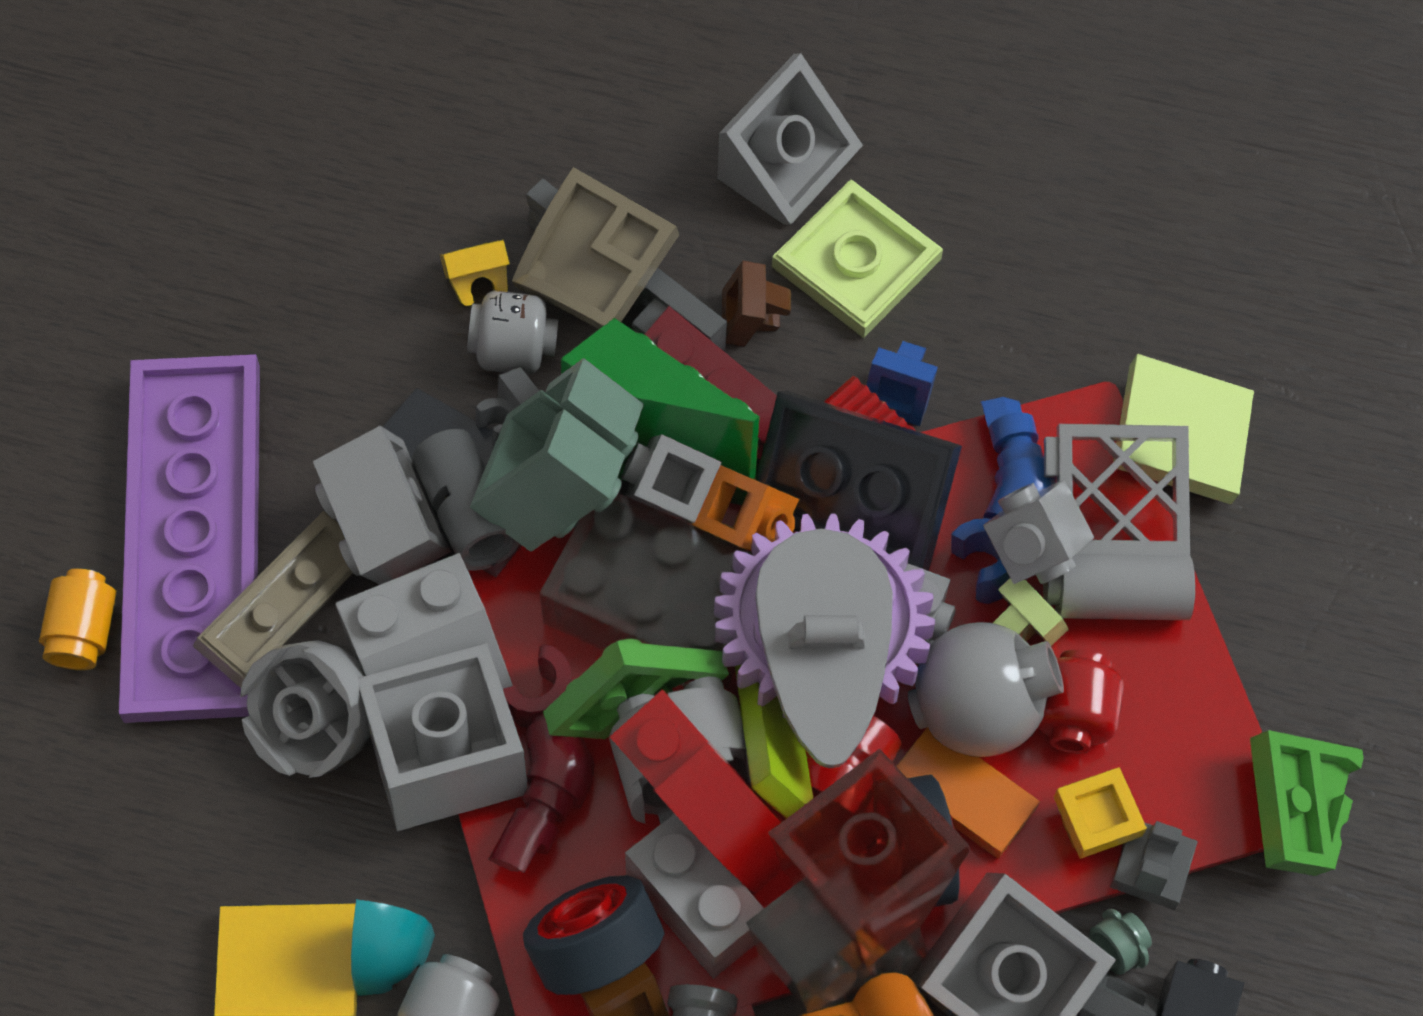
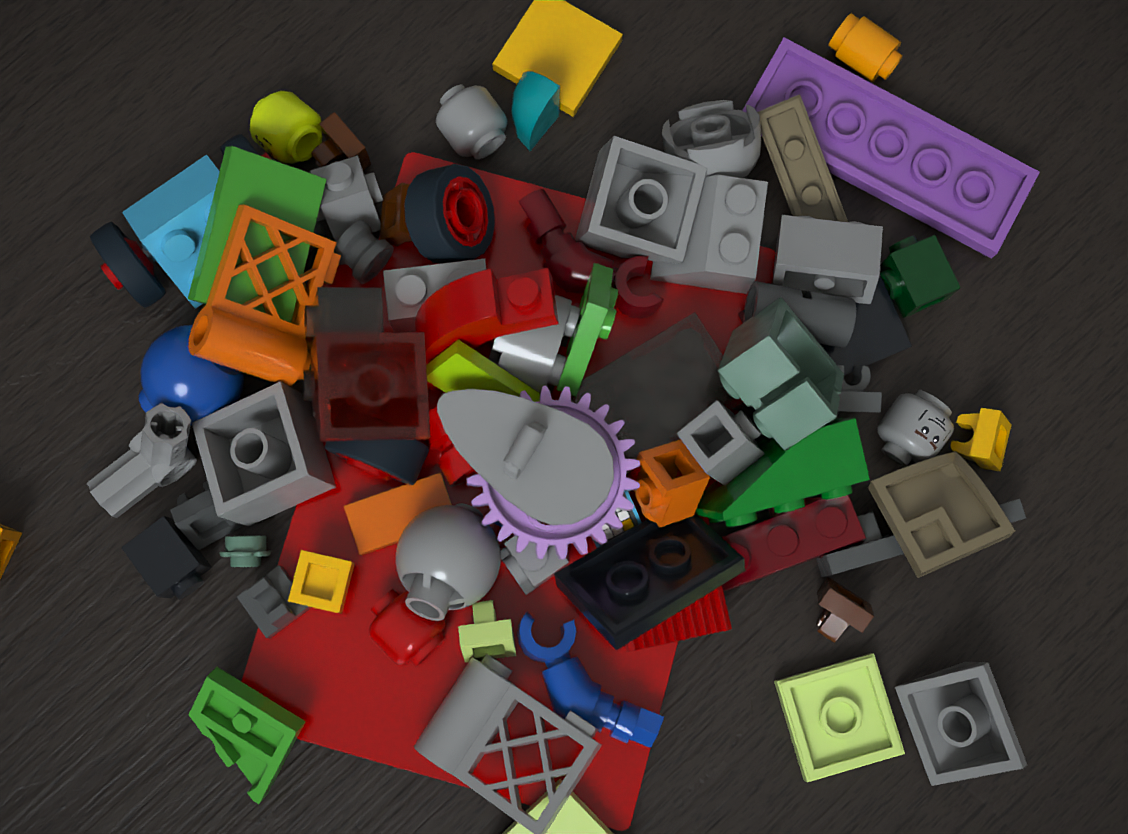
camera: 120 degrees right, 15 degrees up
(330, 414) = (918, 275): none -> dark green brick
(903, 380) = (717, 674): blue tile -> none
(1038, 532) = (525, 667): light grey brick -> none

